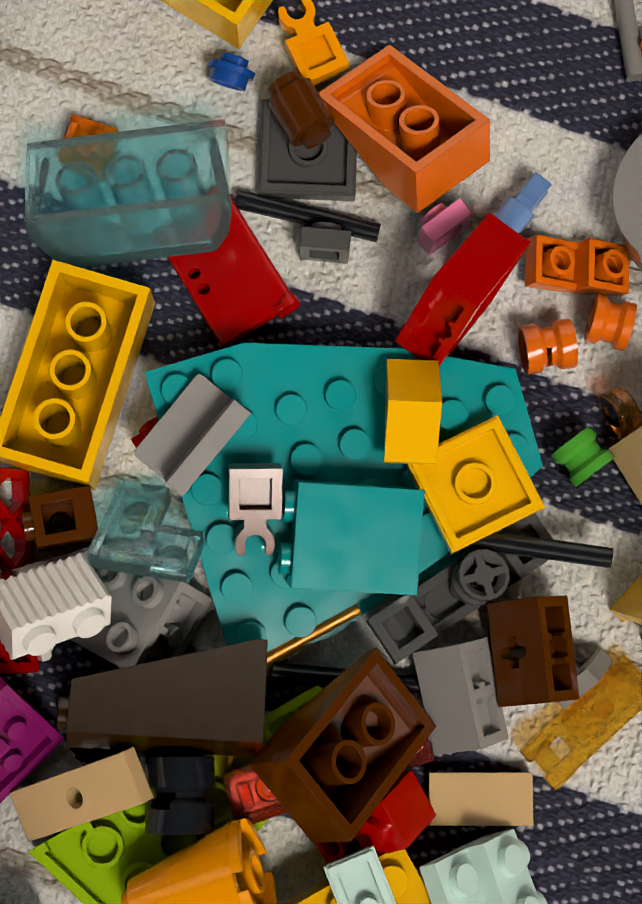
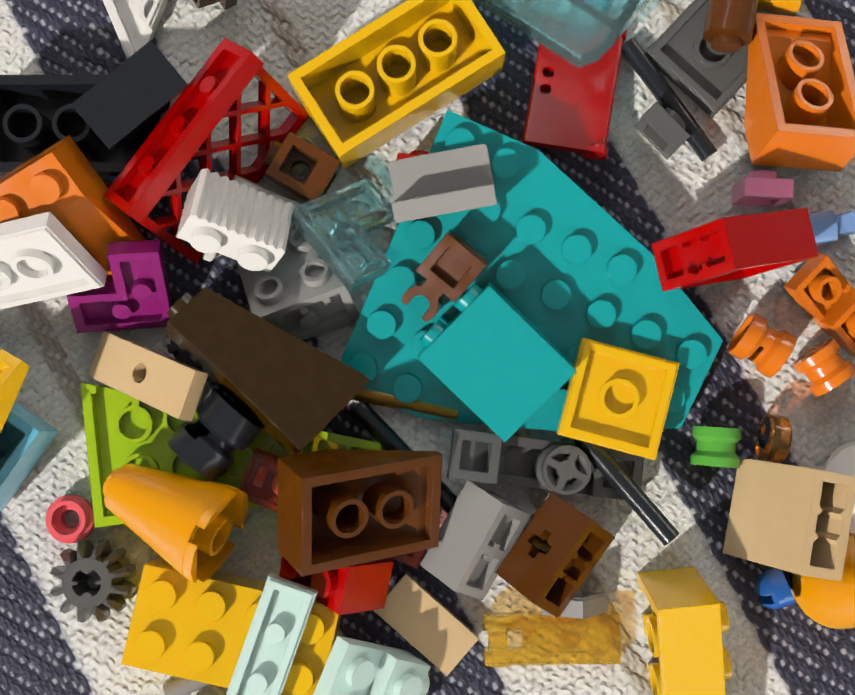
camera: 50 degrees right, 5 degrees up
(412, 411) = (618, 306): yellow slope -> none

